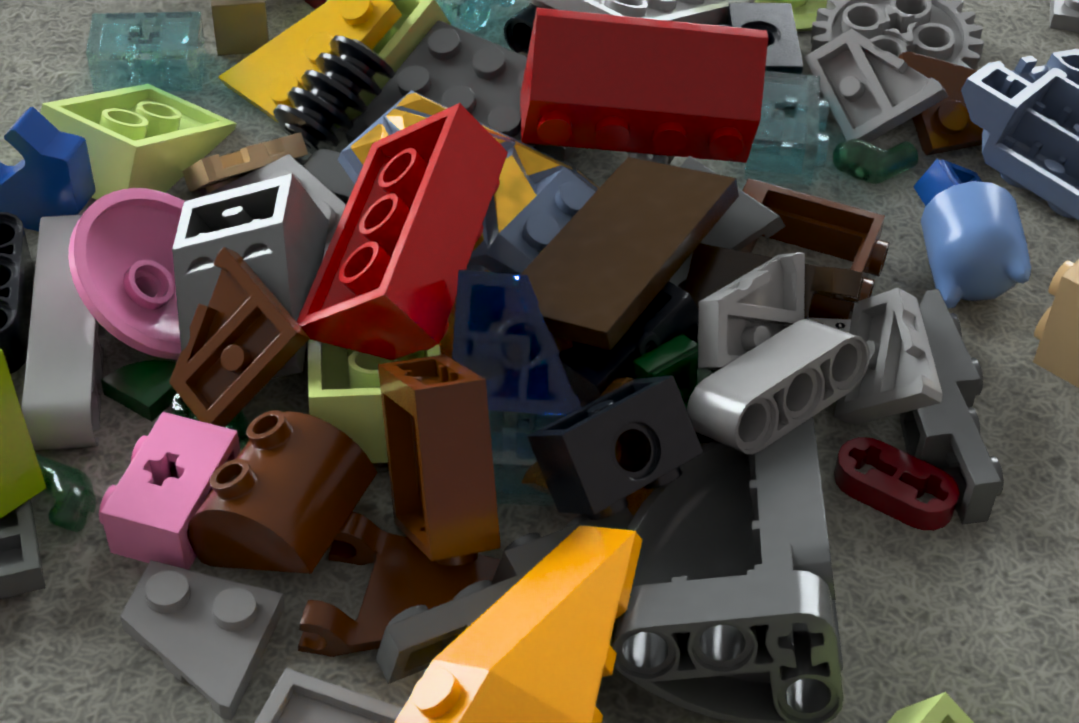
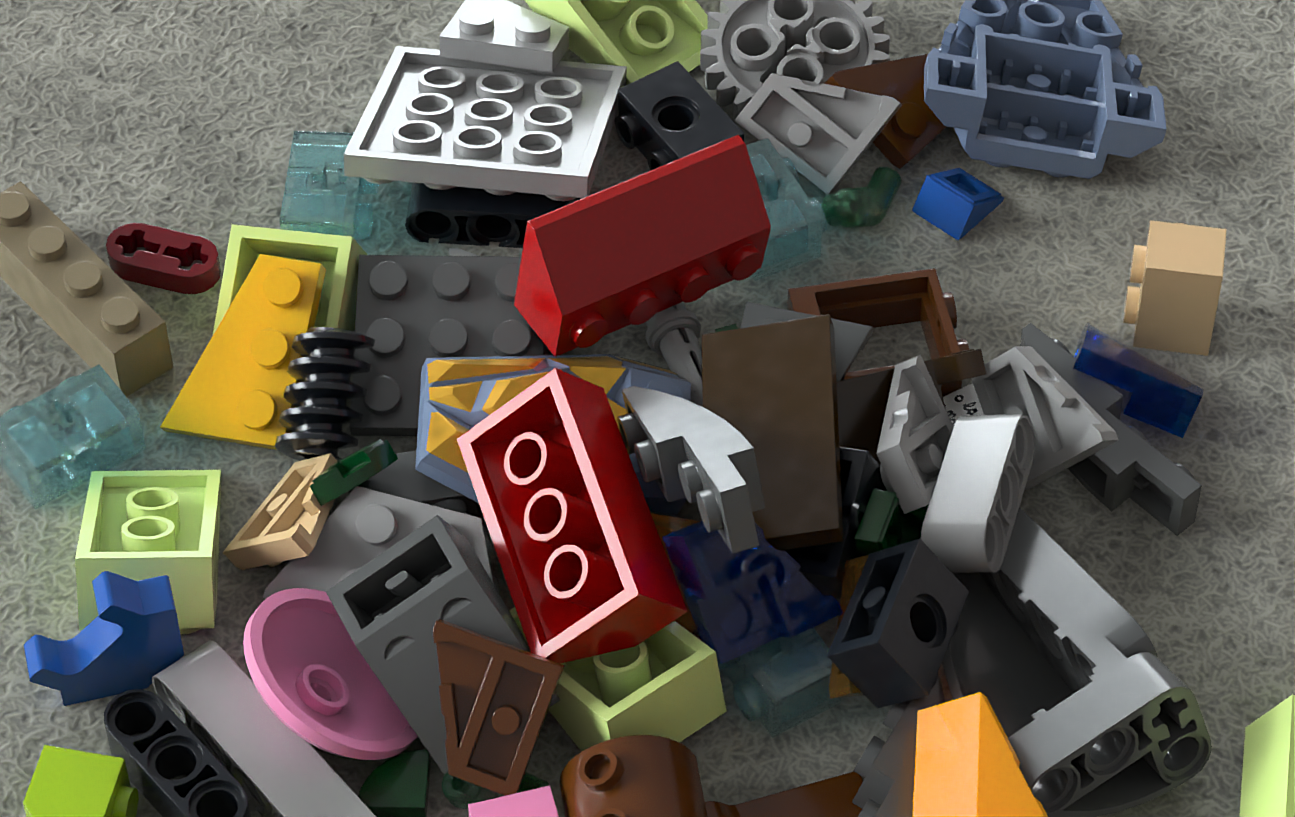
camera: 30 degrees left, 5 degrees up
(303, 148) = (352, 471): none -> dark green tile
(440, 457) = (711, 679): reddish brown window -> none
(515, 228) = (695, 458): none -> dark grey slope
(896, 483) = (1106, 527): dark red beam -> none
(975, 242) = (1025, 256): medium blue piece -> none
(1016, 392) = (1154, 392): none -> clear blue slope

